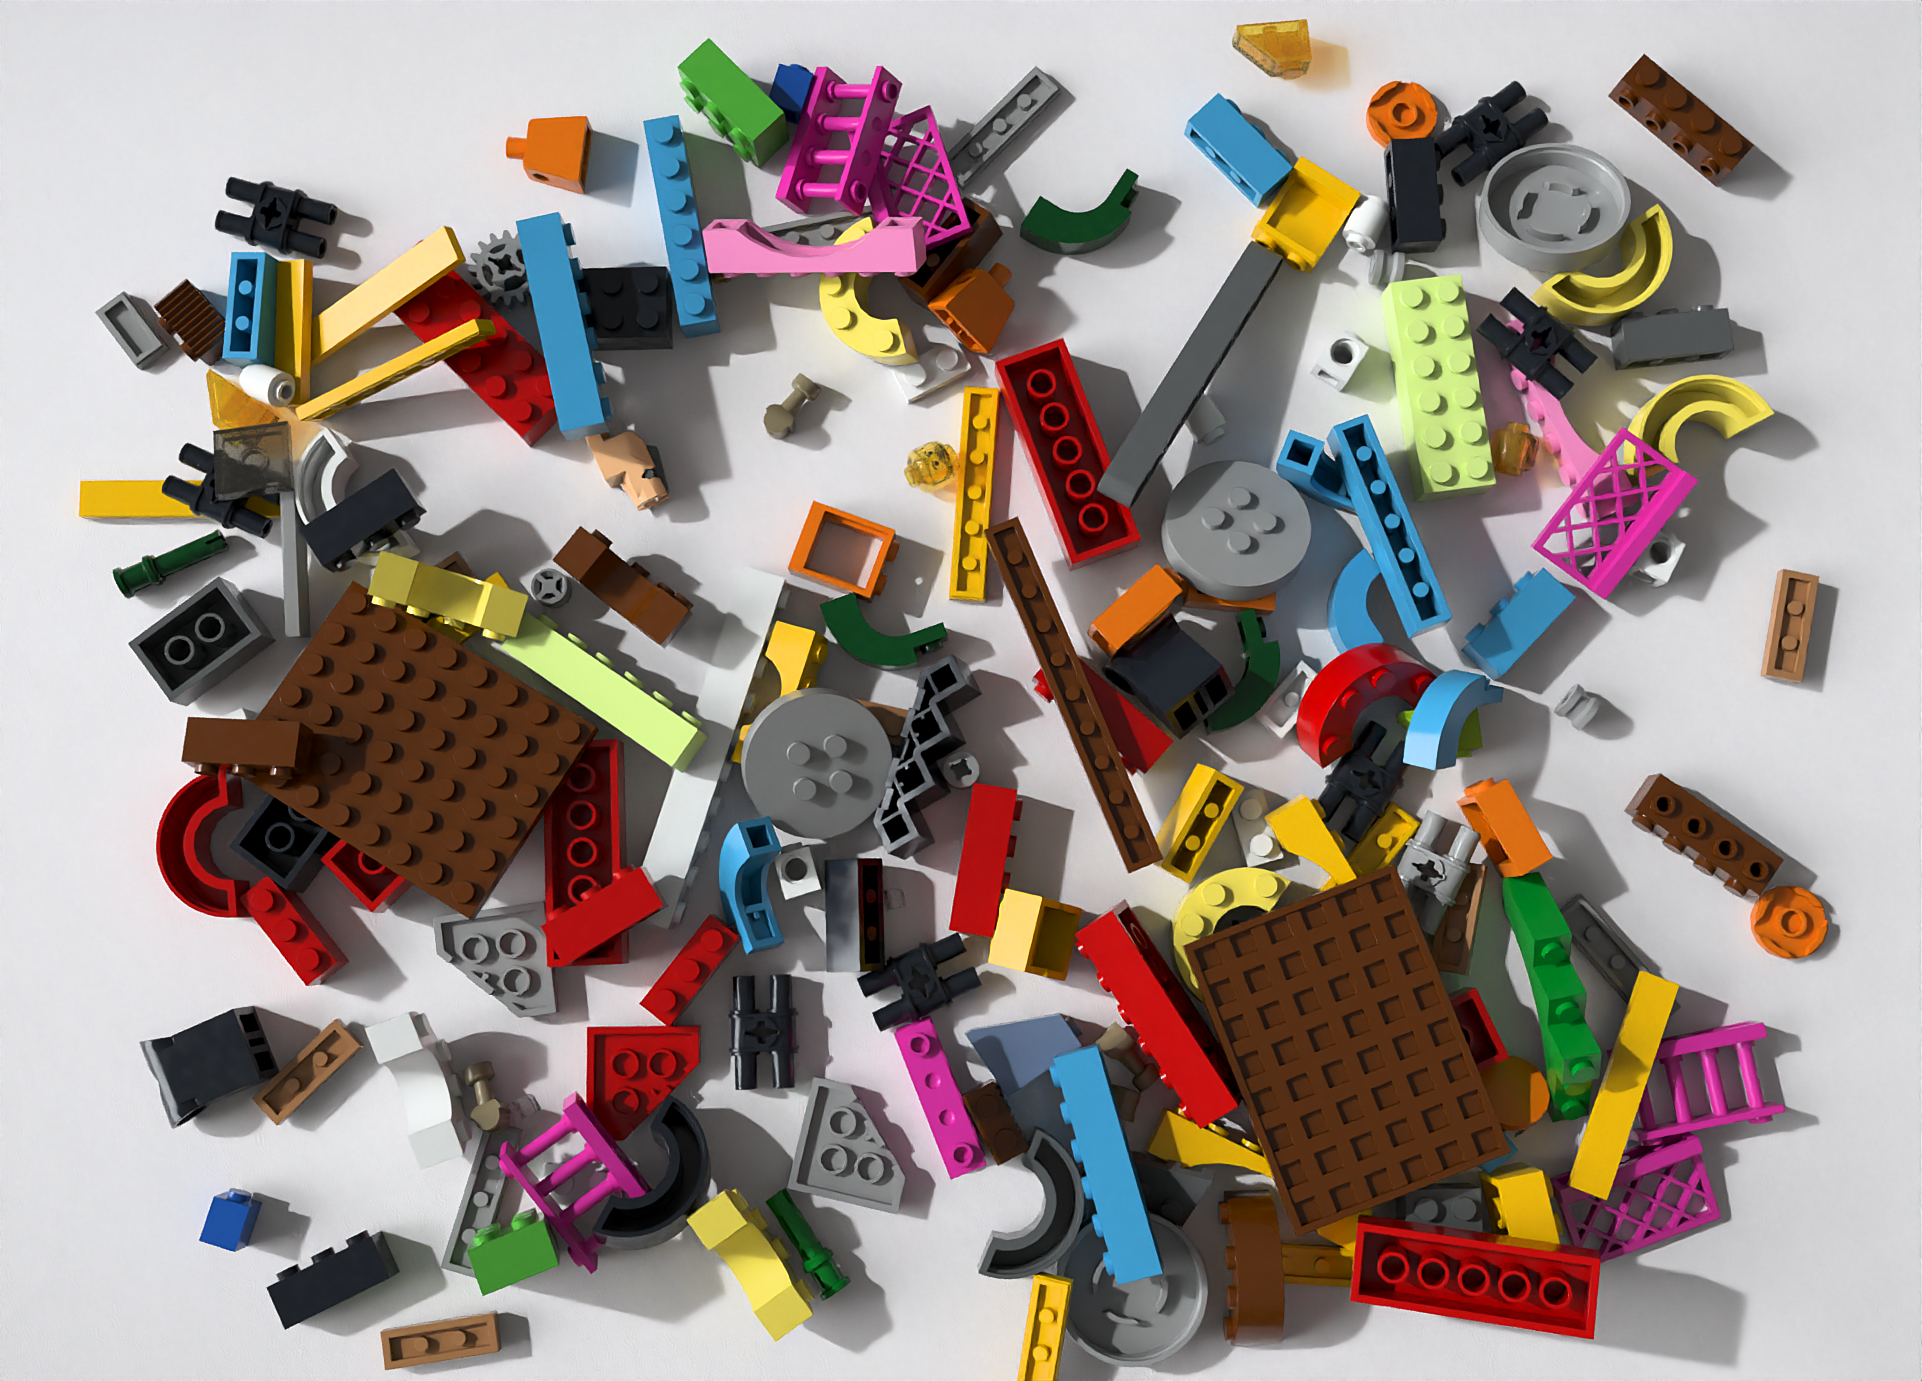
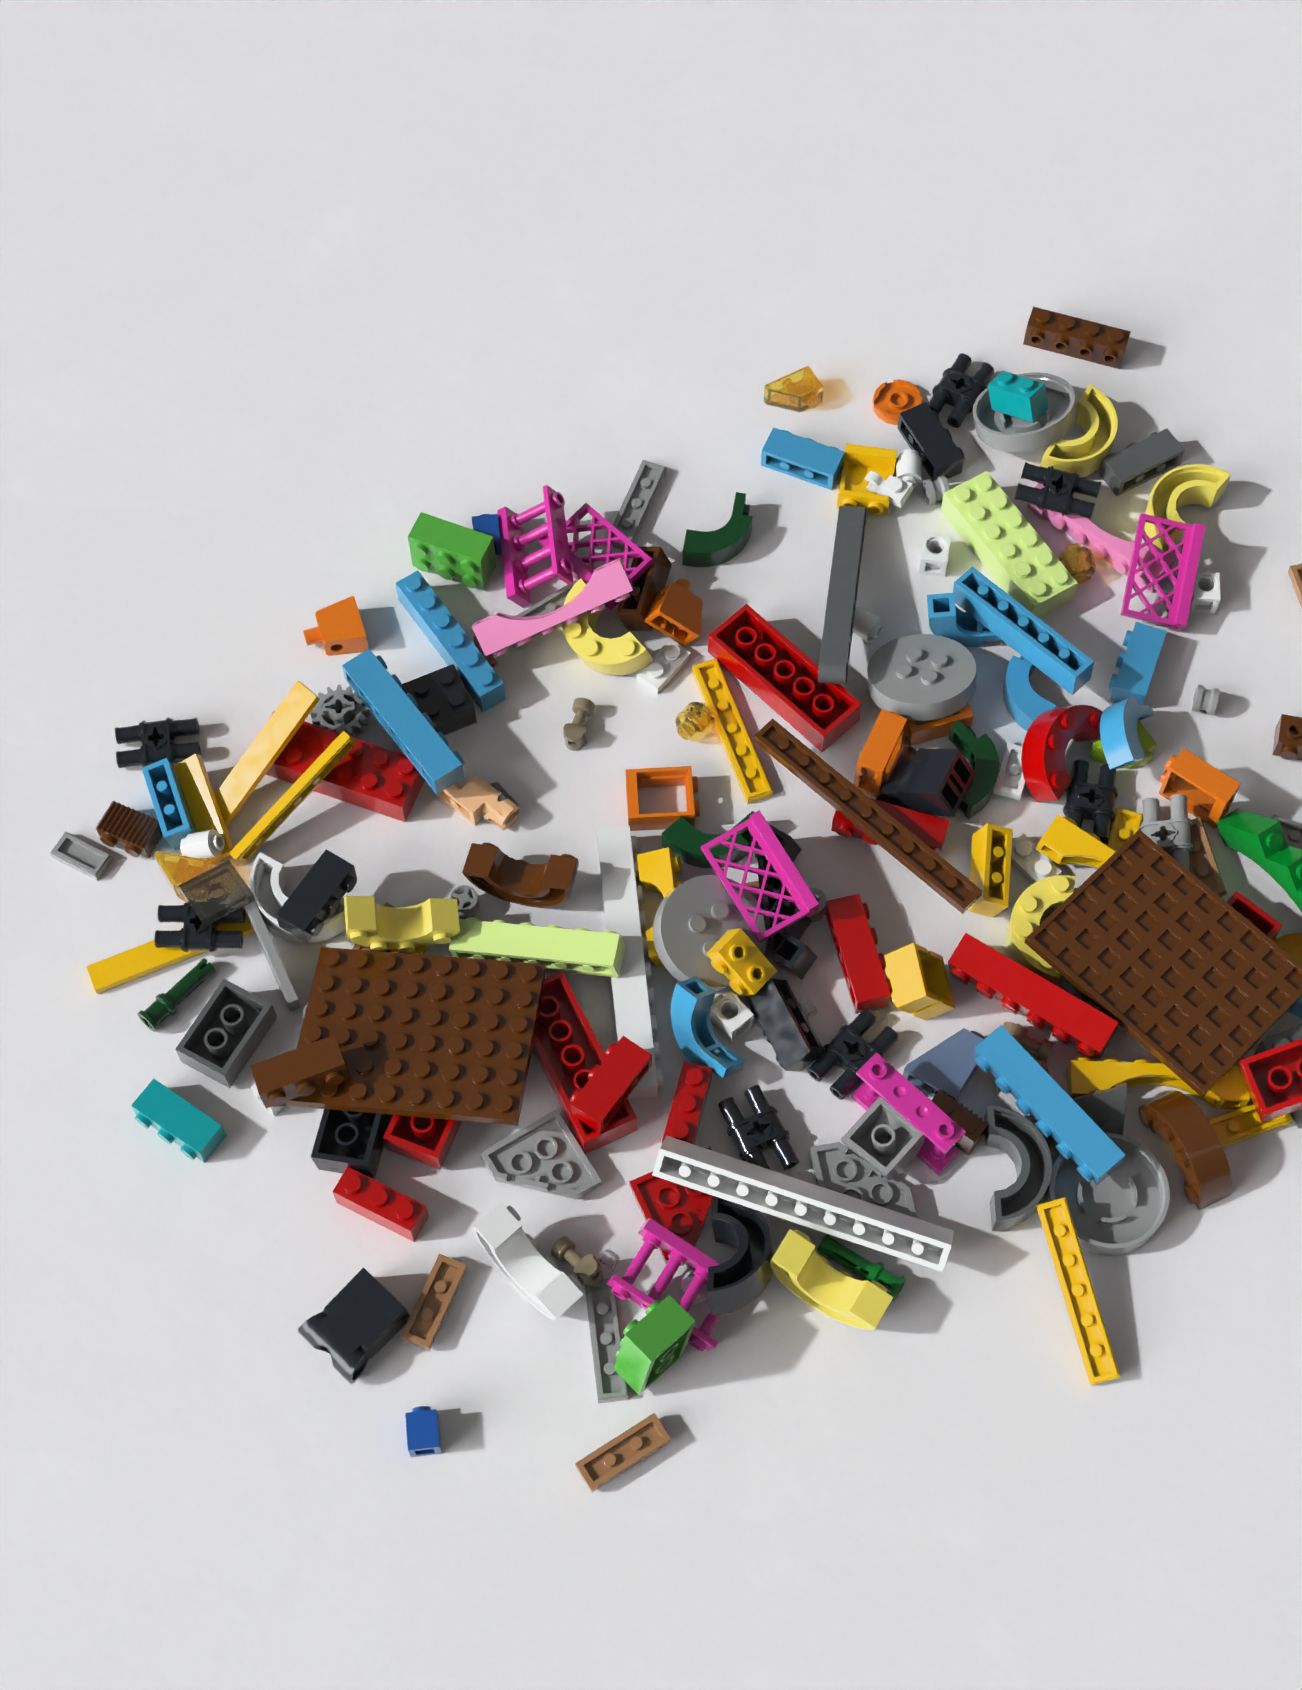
camera: 20 degrees left, 20 degrees down
(108, 725) = (178, 1121): none -> teal brick
(185, 846) = (284, 1192): red brick -> none
(332, 1278) = (520, 1441): black brick -> none
(765, 1155) = (804, 1203): none -> white brick
(831, 823) = (741, 962): none -> yellow brick
(891, 1115) = (884, 1139): none -> light grey brick
(932, 723) = (781, 864): none -> dark pink fence
(1330, 245) = (894, 487): none -> white plate
(1553, 185) = (1018, 396): none -> teal brick

